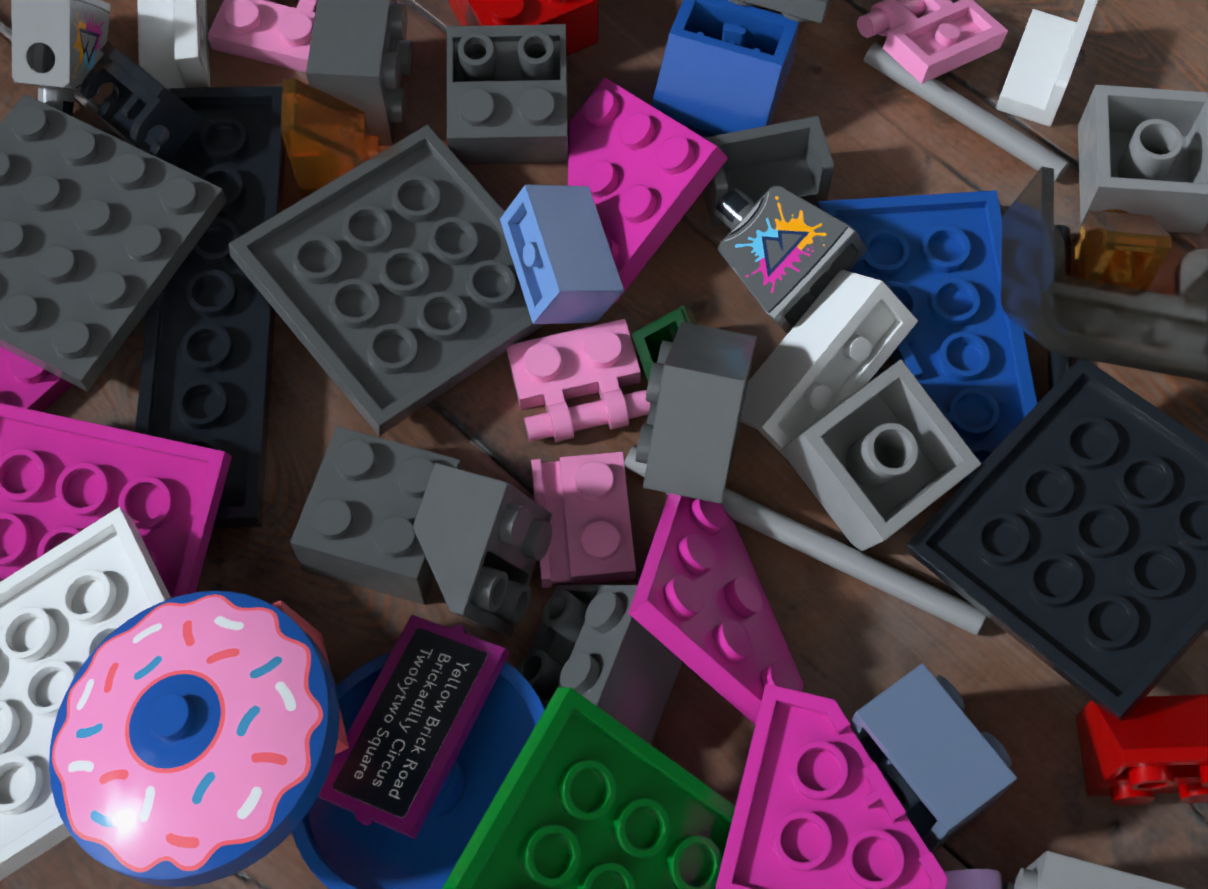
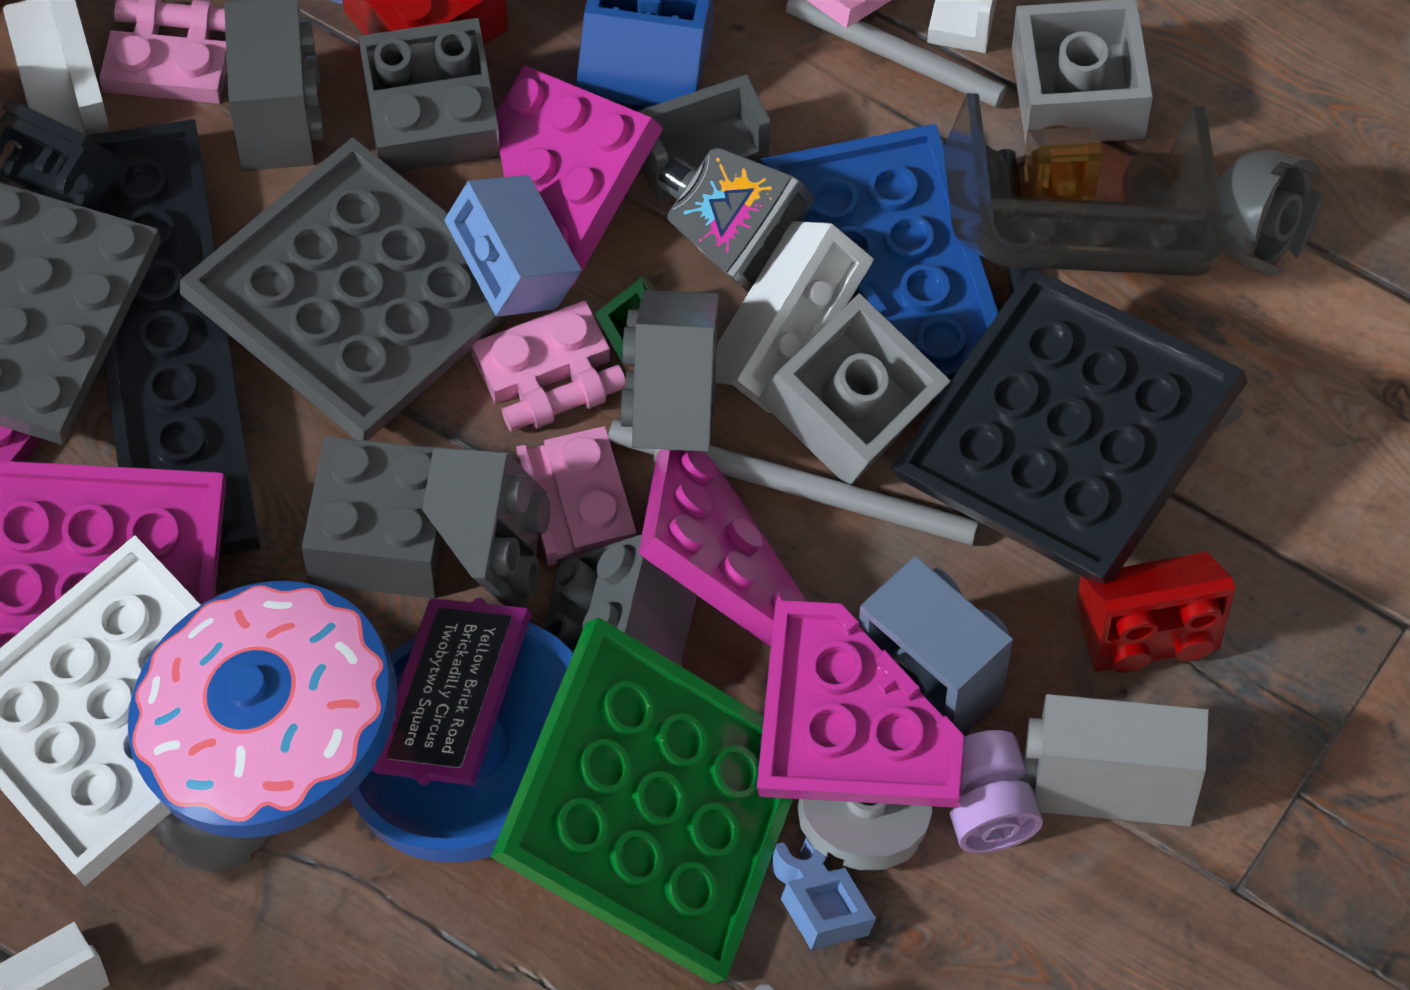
camera: 10 degrees left, 5 degrees down
(322, 135) = (251, 165): clear orange slope -> none

